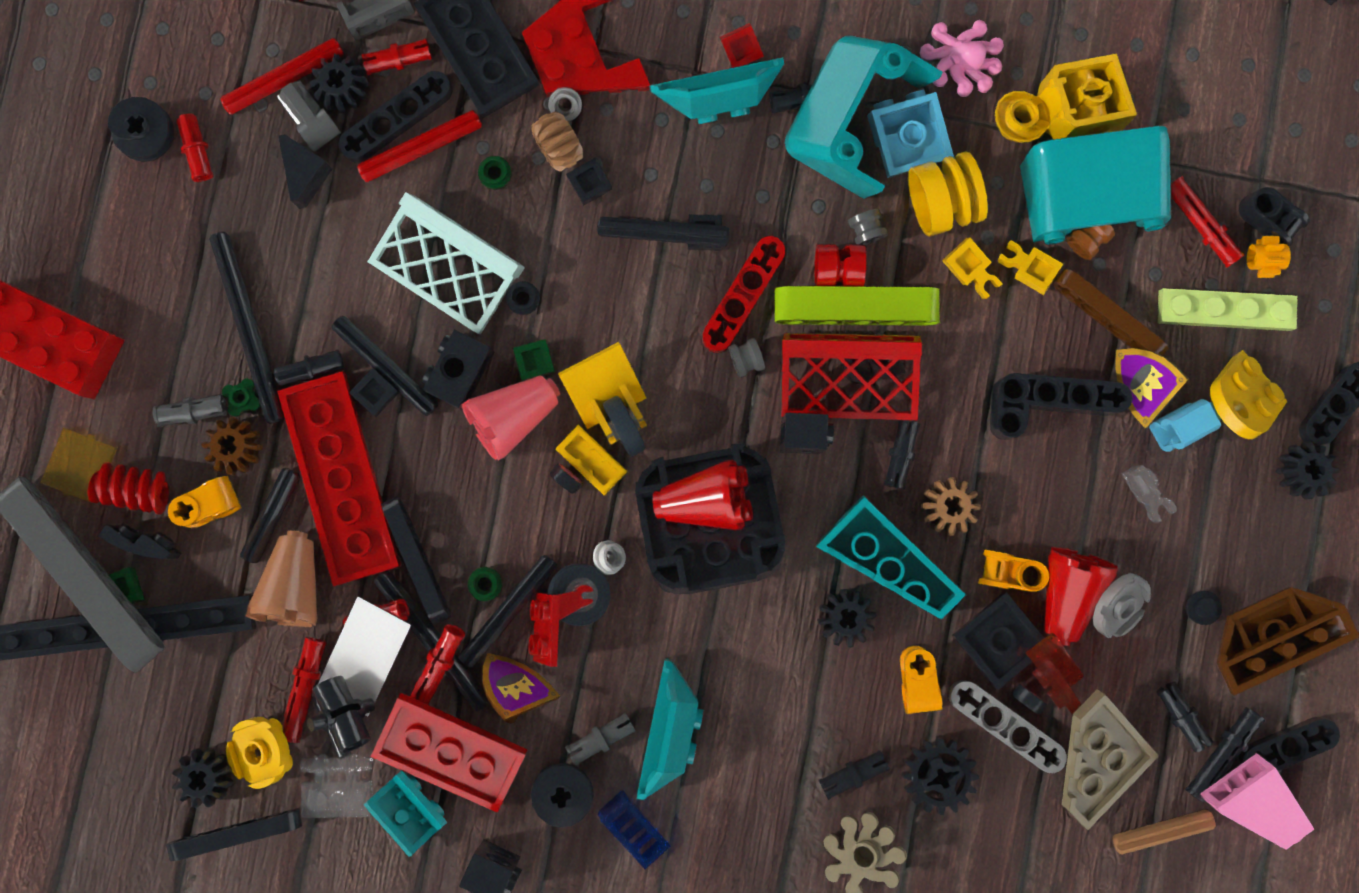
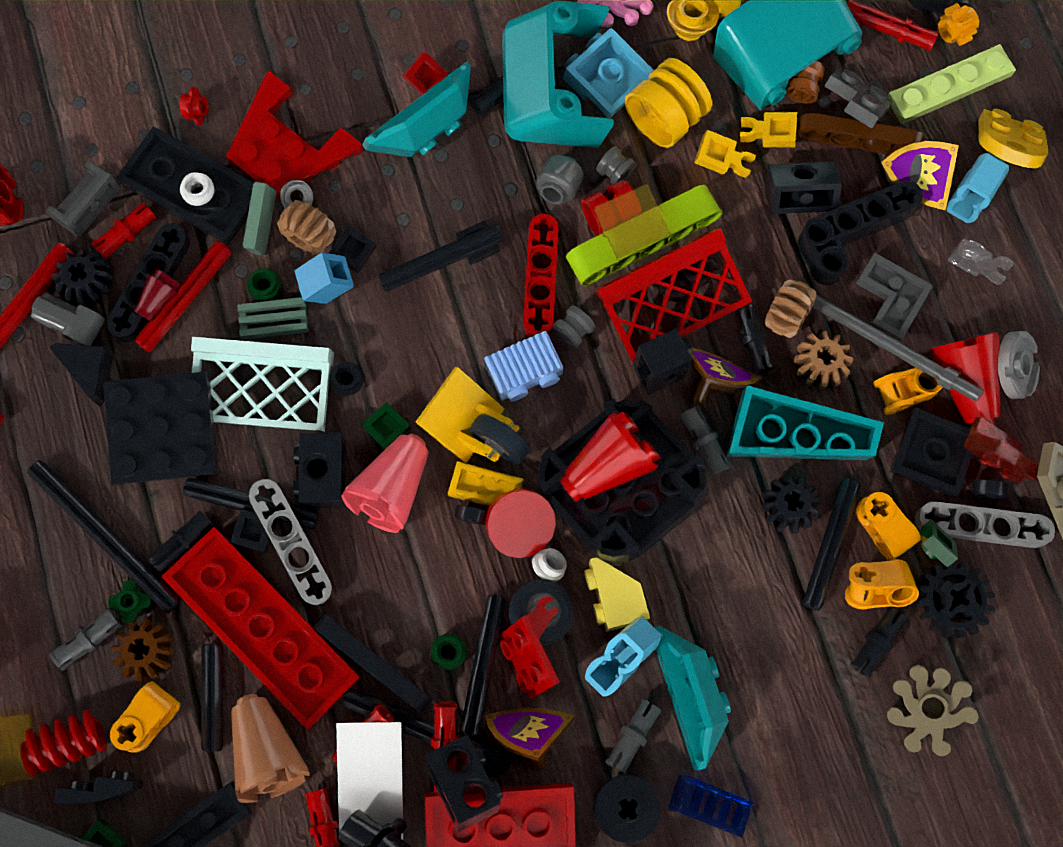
camera: 30 degrees left, 10 degrees down
(340, 258) = (160, 428): none -> black plate
(395, 134) = (156, 294): none -> dark red cone
(398, 419) = (294, 539): none -> light grey beam
(424, 704) = (454, 785): none -> black brick
(461, 198) = (270, 306): none -> sand green tile
(473, 45) = (193, 181): none -> white plate
(520, 110) = (259, 218): none -> sand green tile
(548, 197) = (324, 278): none -> dark azure brick
(603, 508) = (520, 522): none -> tile
(625, 671) = (622, 656): none -> medium azure brick
(652, 617) = (618, 595): none -> light yellow slope
(682, 371) = (524, 367): none -> light blue brick
(805, 522) = (705, 440): none -> dark grey pin
(809, 213) = (559, 179): none -> dark grey head
(849, 290) = (632, 221): none -> clear yellow piece
(850, 468) = (719, 375): none -> shield
(863, 670) = (831, 544): none -> black axle
(886, 729) = (884, 583): none -> light orange piece
(947, 445) = (790, 308): none -> medium nougat gear
(953, 722) = (938, 543): none -> dark green plate
(1026, 338) = (802, 187): none -> black brick
(1046, 585) = (946, 377): none -> dark grey bar
(1058, 484) = (901, 291): none -> dark grey plate
(1135, 285) = (865, 102): none -> dark grey plate

